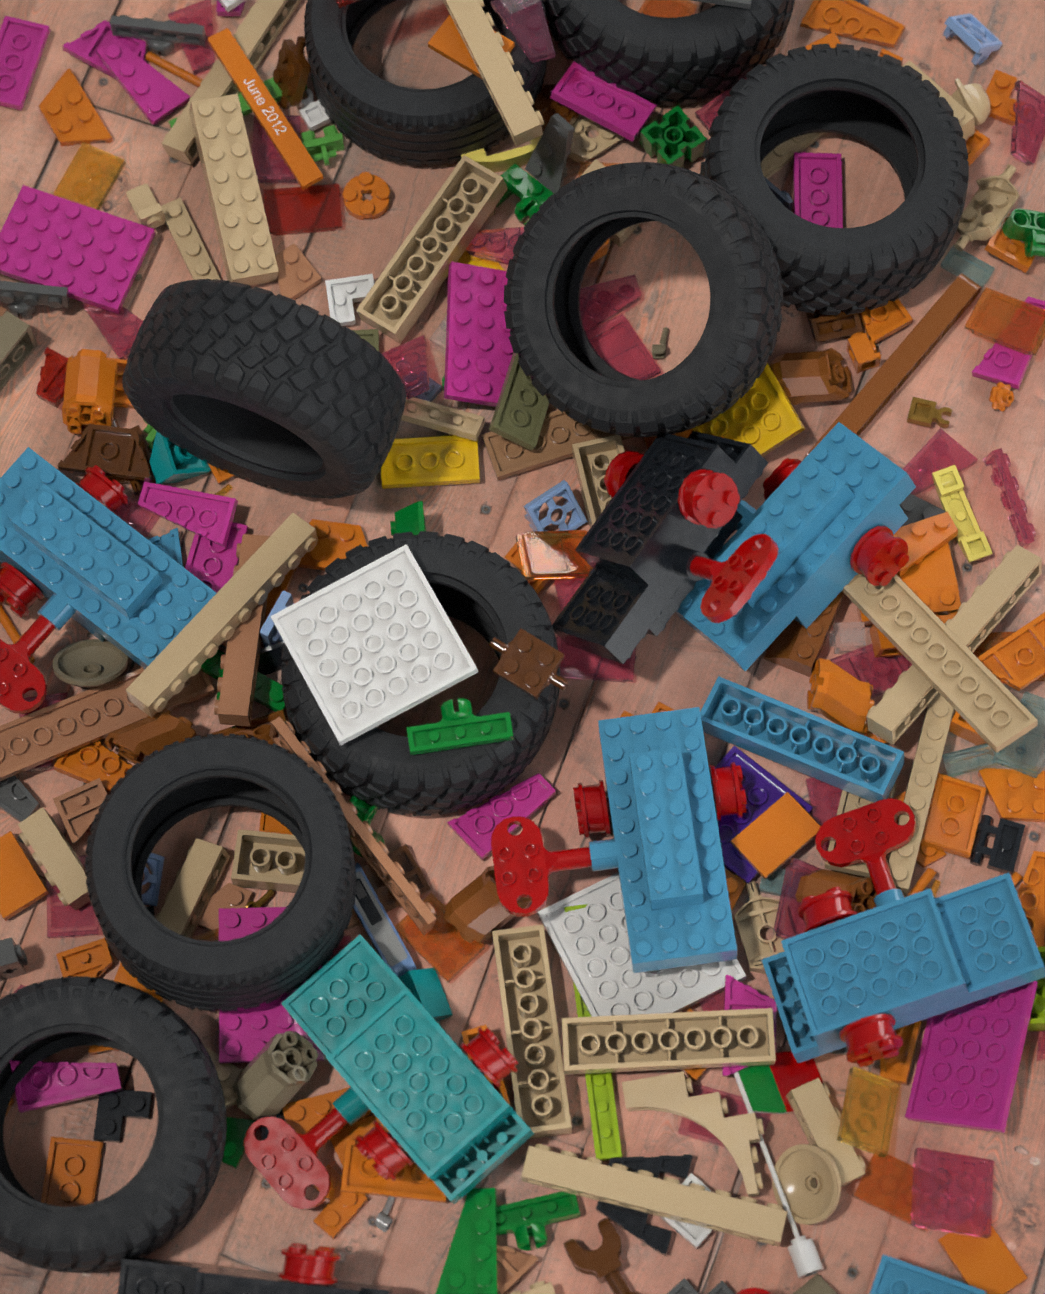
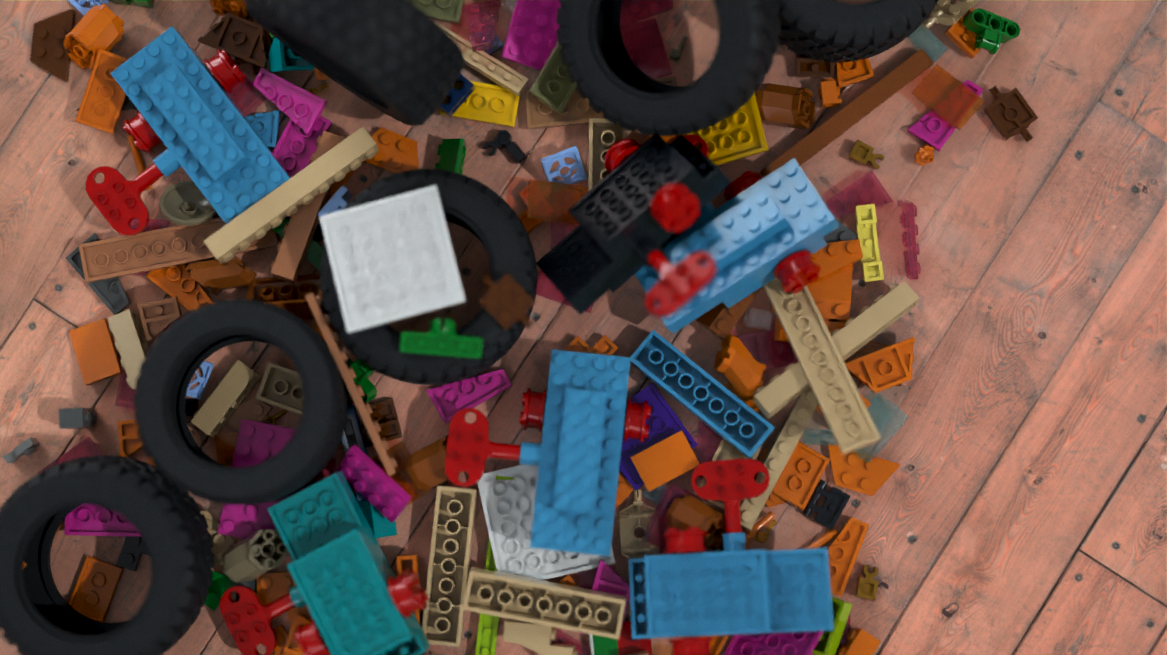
camera: 10 degrees right, 15 degrees up
(399, 457) = (457, 96): none -> dark blue brick
(411, 944) = (374, 483): none -> dark pink plate
(471, 498) = (505, 139): none -> black bar

